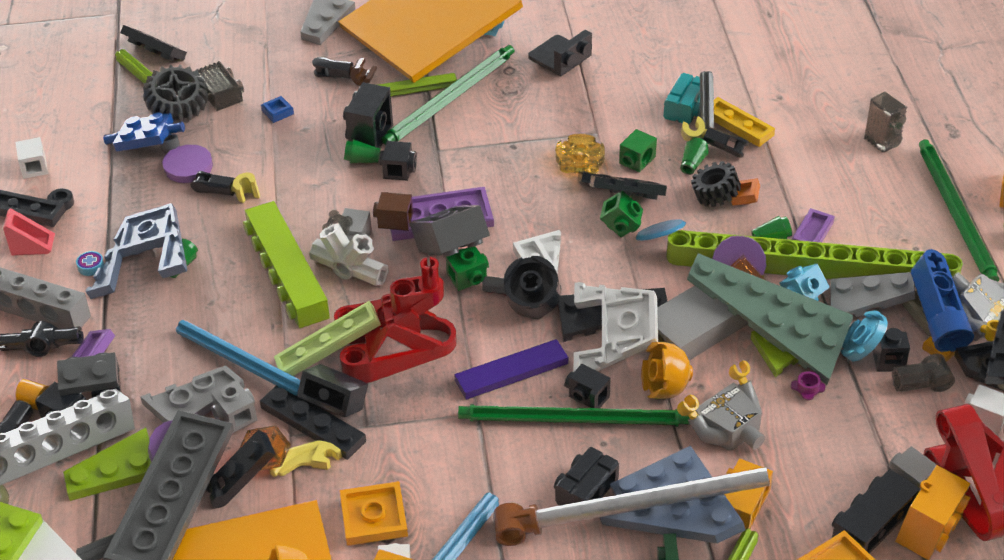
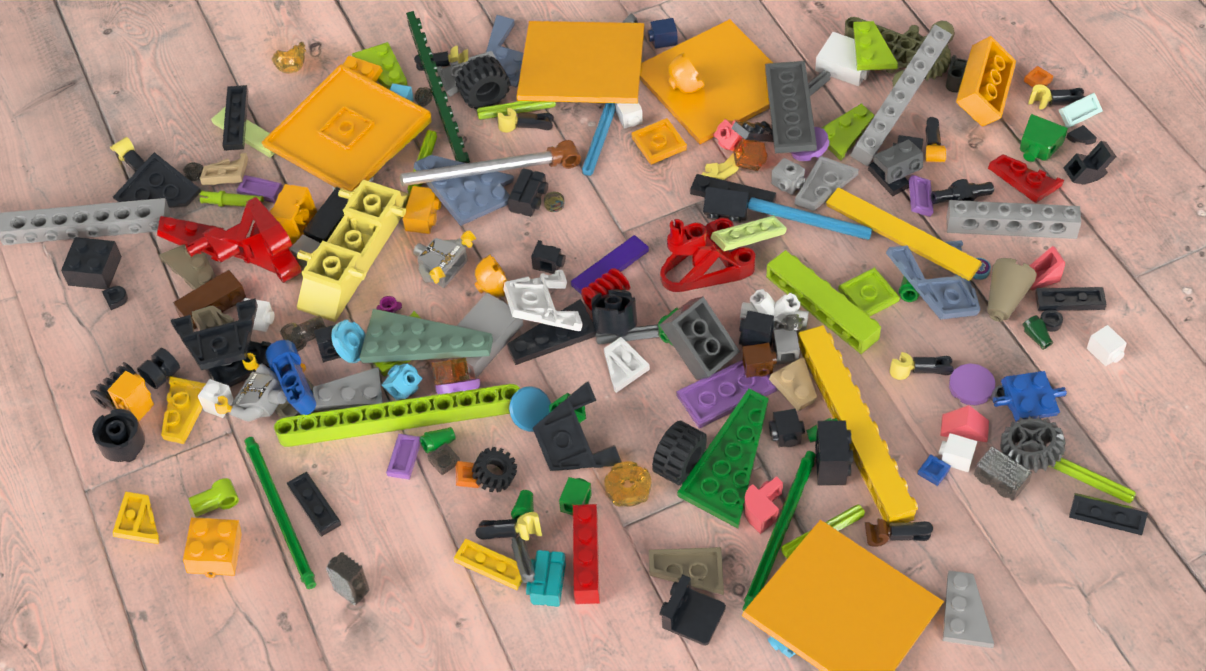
camera: 165 degrees right, 10 degrees up
(80, 221) = (1008, 287): none -> dark tan cone
(85, 188) = (1037, 331): none -> dark green cone
(147, 308) = (904, 234): none -> yellow tile
(224, 131) = (965, 423): none -> coral slope
(227, 269) = (869, 292): none -> lime tile
(246, 108) = (958, 452): none -> white brick
(273, 483) = (727, 137): none -> coral brick
(327, 148) = (844, 403): none -> yellow brick
(363, 193) = (795, 384): none -> tan wing
(384, 227) = (756, 329): none -> black brick
(457, 110) = (758, 504): none -> coral brick
(470, 146) = (725, 468): none -> green wing
(519, 142) = (679, 452): none -> black tyre
(528, 328) = (609, 281): none -> red piece
(545, 84) = (699, 564): none -> dark tan wing
(550, 469) = (554, 201): none -> clear smoke tile
(572, 415) = (555, 240): green piece -> none
(643, 100) = (586, 554): none -> red brick
(767, 210) = (443, 459): none -> clear smoke plate
(838, 463) = (344, 260): none -> light yellow piece
(918, 211) = (313, 504): none -> black tile

